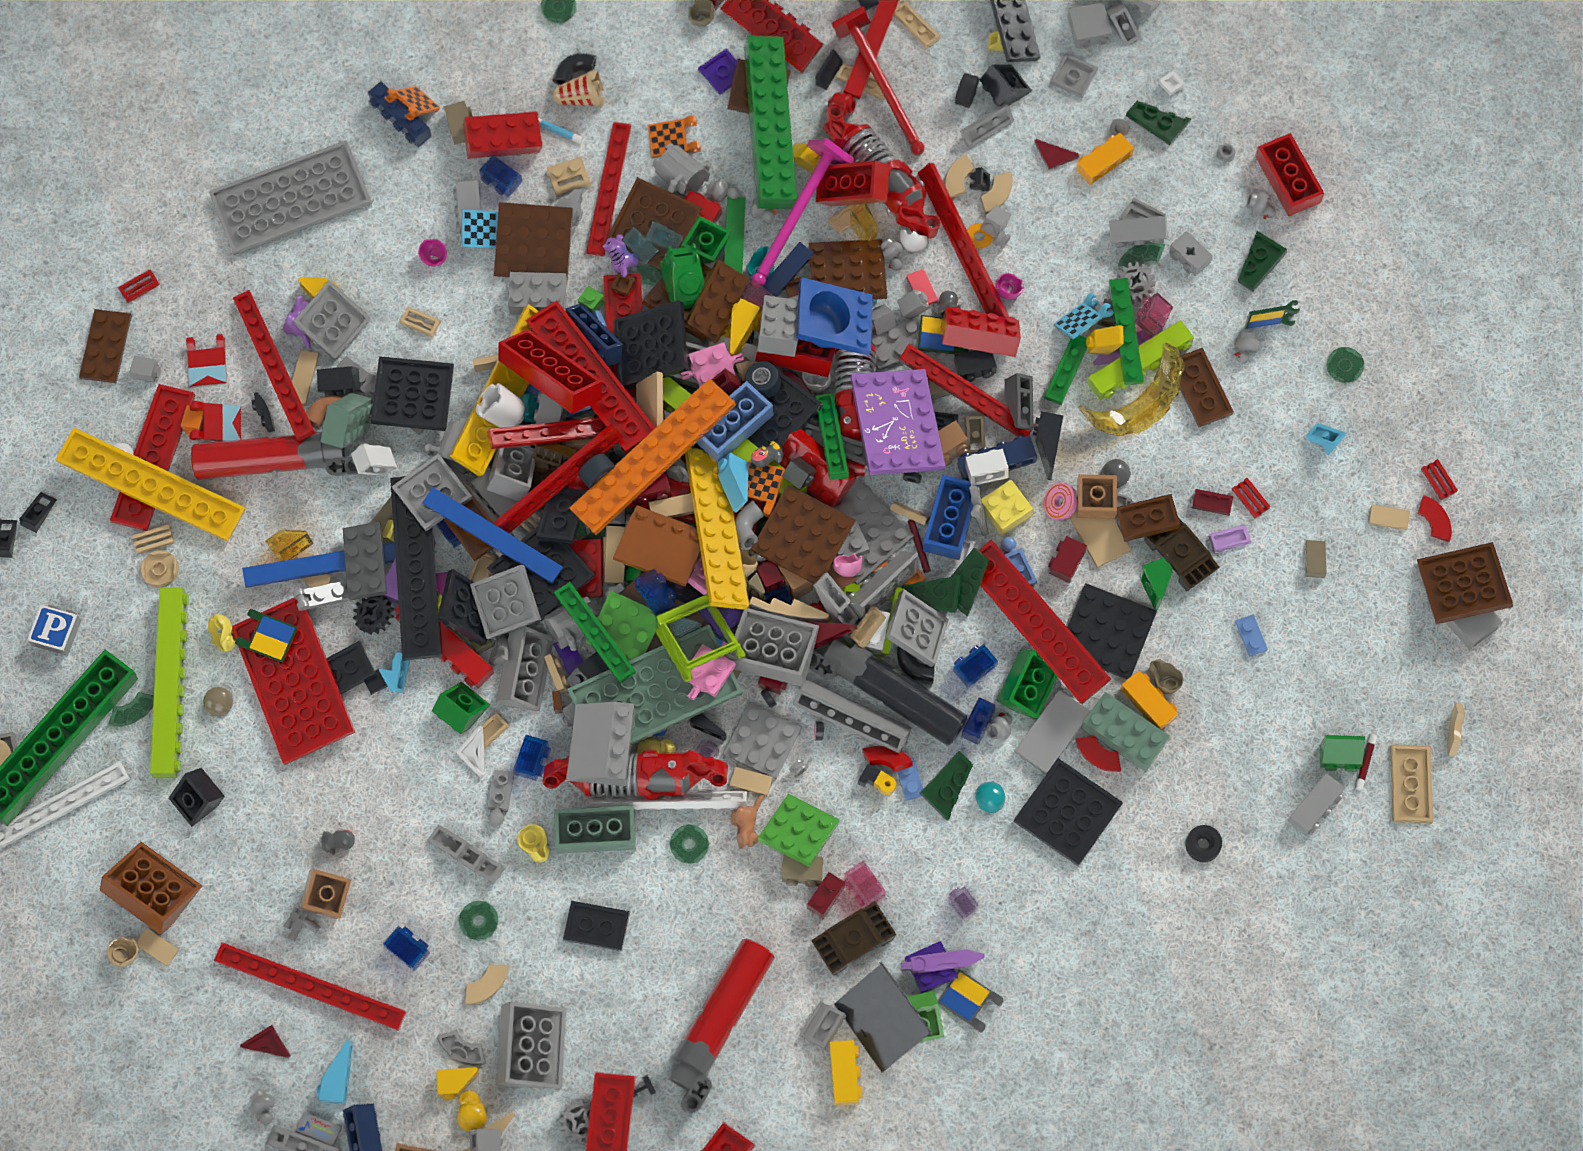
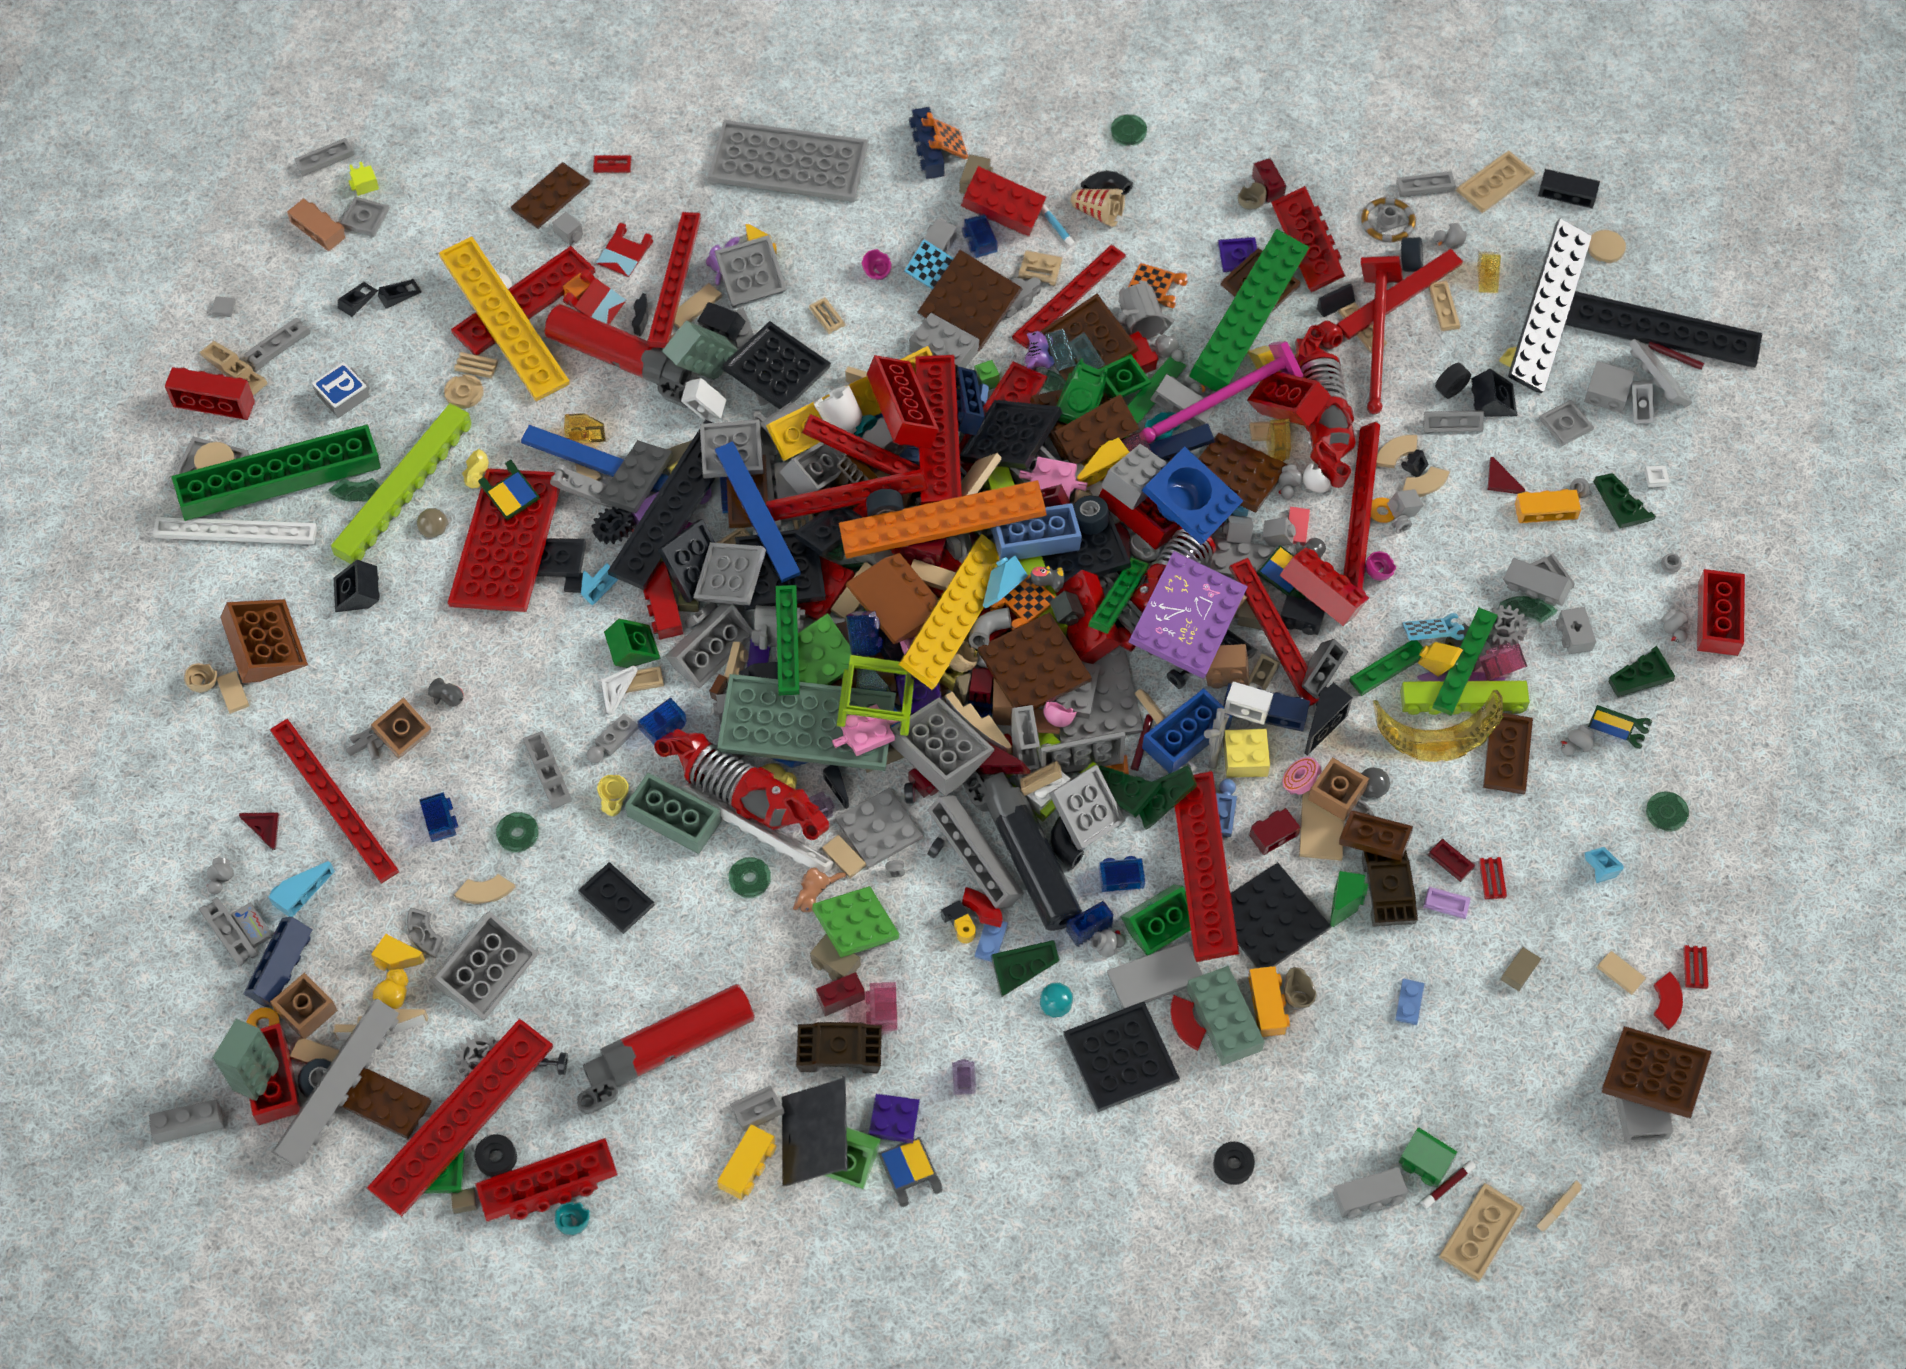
camera: 30 degrees right, 10 degrees down
(601, 743) = (726, 735): light grey slope -> none
(623, 285) = (1024, 377): reddish brown tile -> none
(761, 233) = (1176, 397): none -> light grey brick
(942, 961) = (906, 1116): medium lavender piece -> none

